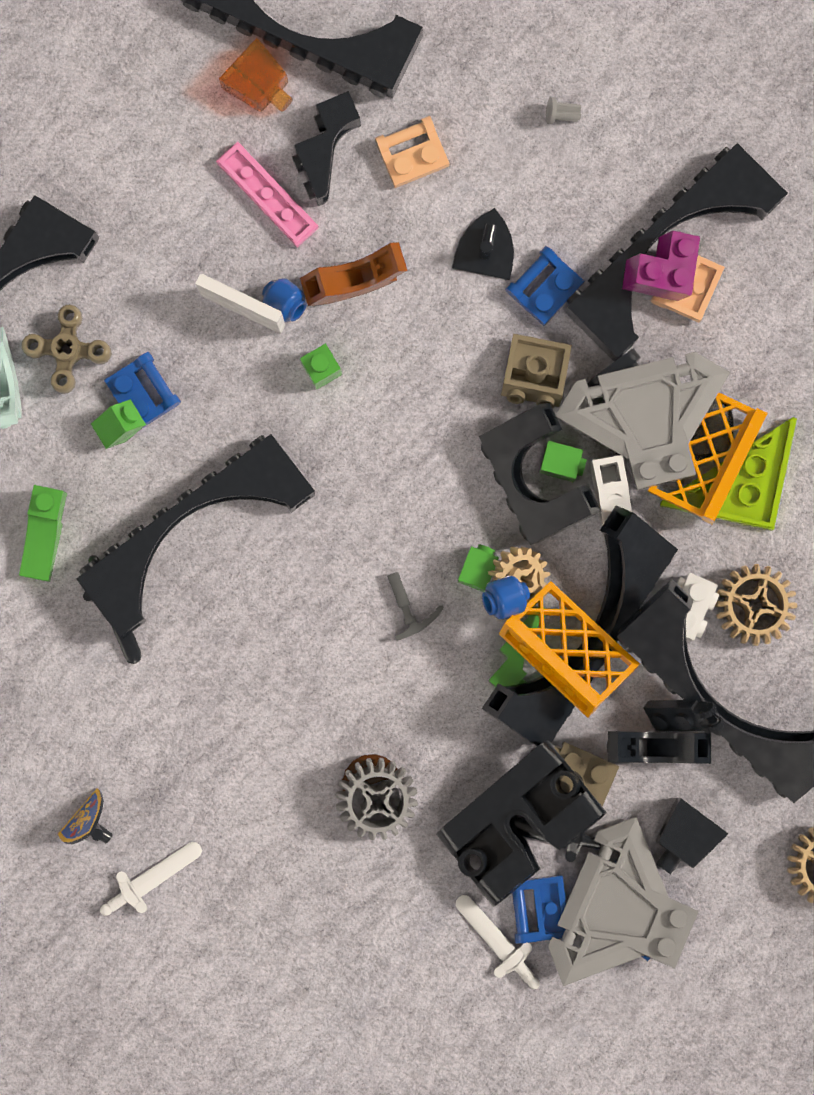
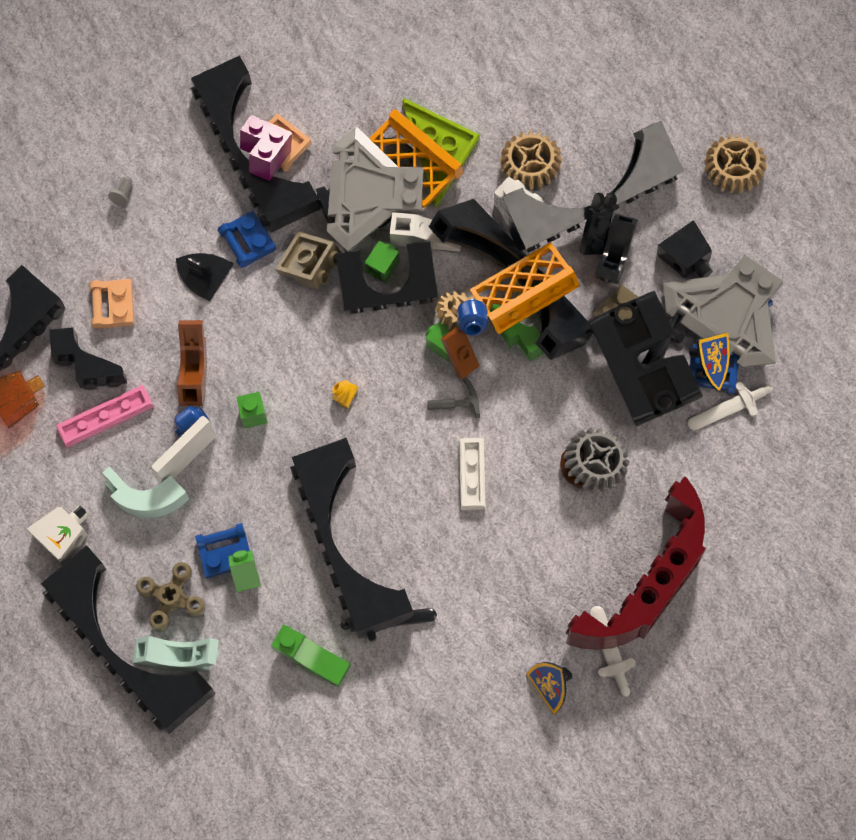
camera: 70 degrees left, 15 degrees down
(106, 195) = (60, 532): none -> white torso
(178, 296) = (149, 503): none -> light aqua arch
(185, 898) = (671, 570): none -> dark red slope
(321, 653) = (472, 474): none -> white tile
(377, 469) = (344, 393): none -> yellow plate
(463, 594) = (460, 352): none -> dark orange plate
(544, 908) = (713, 358): none -> shield

